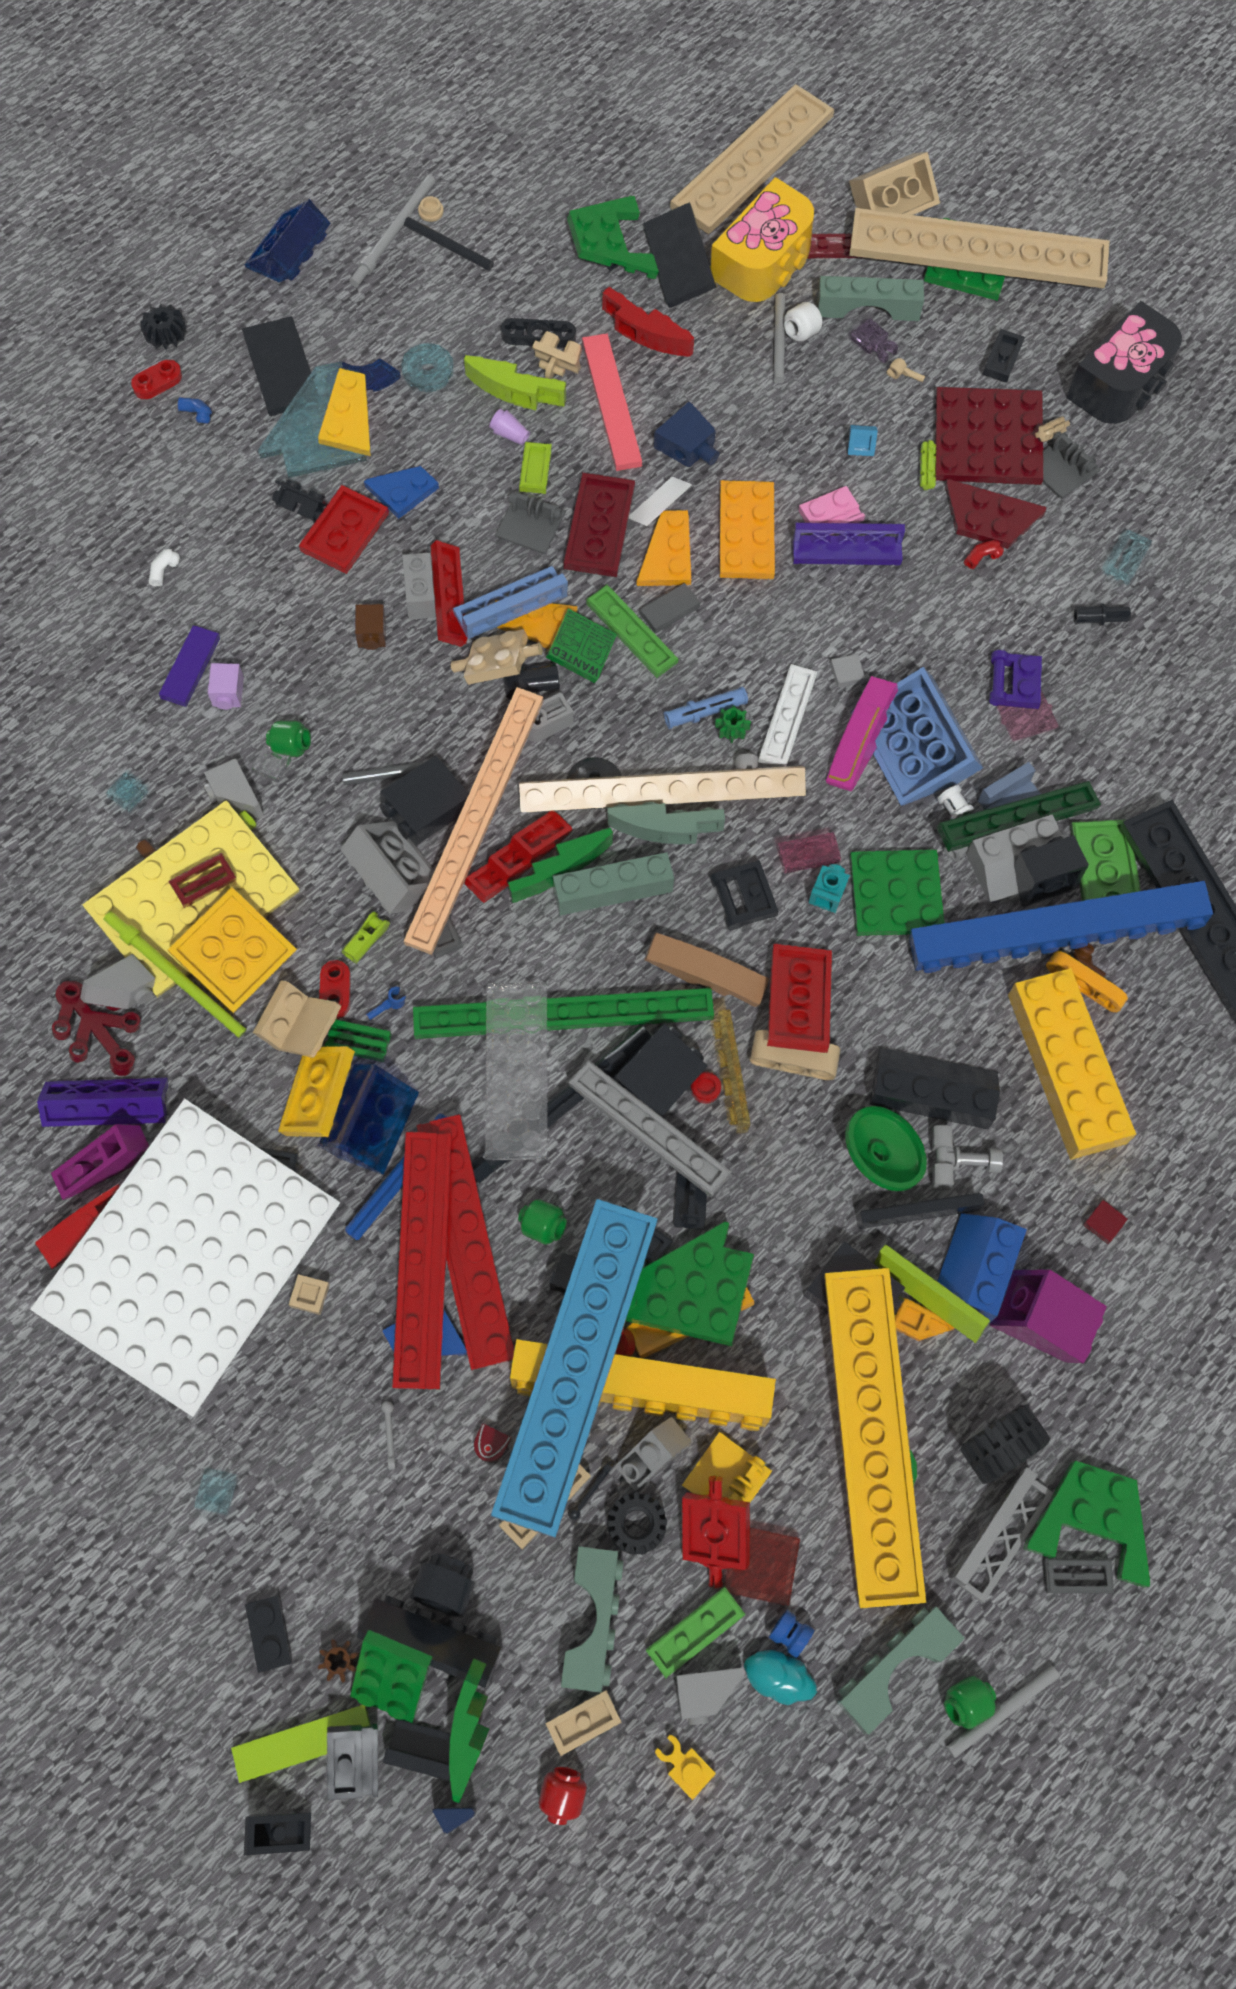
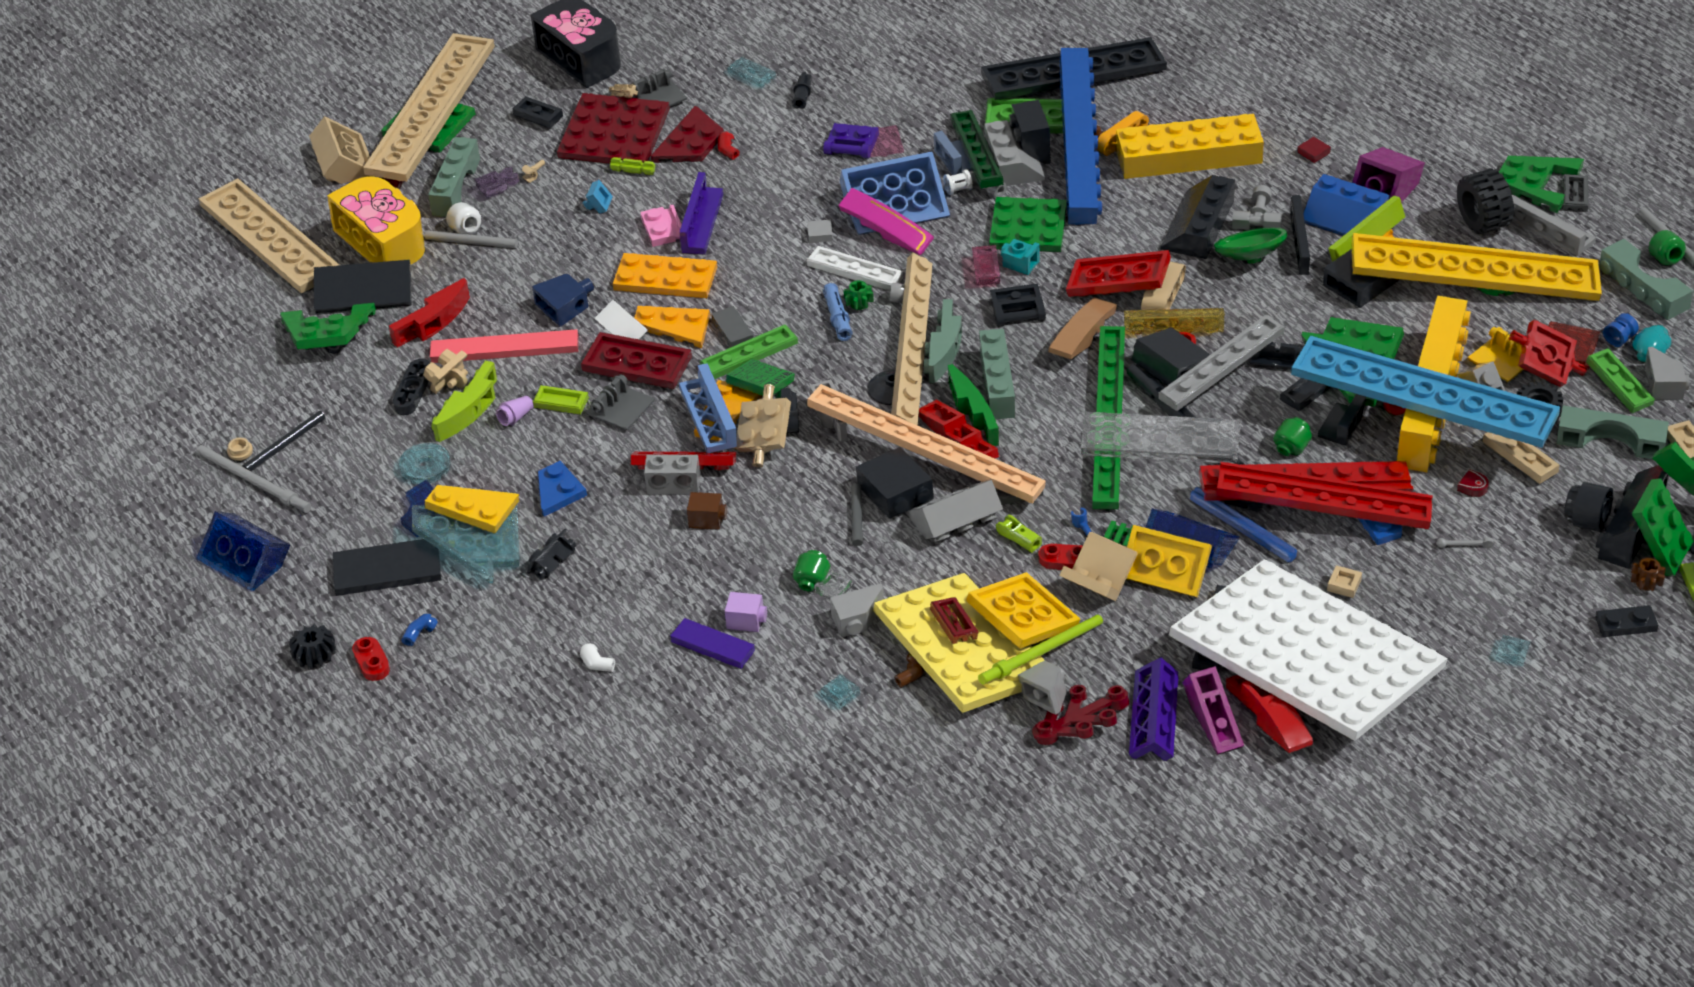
camera: 75 degrees left, 25 degrees down
(344, 529) = (593, 526): red plate -> none

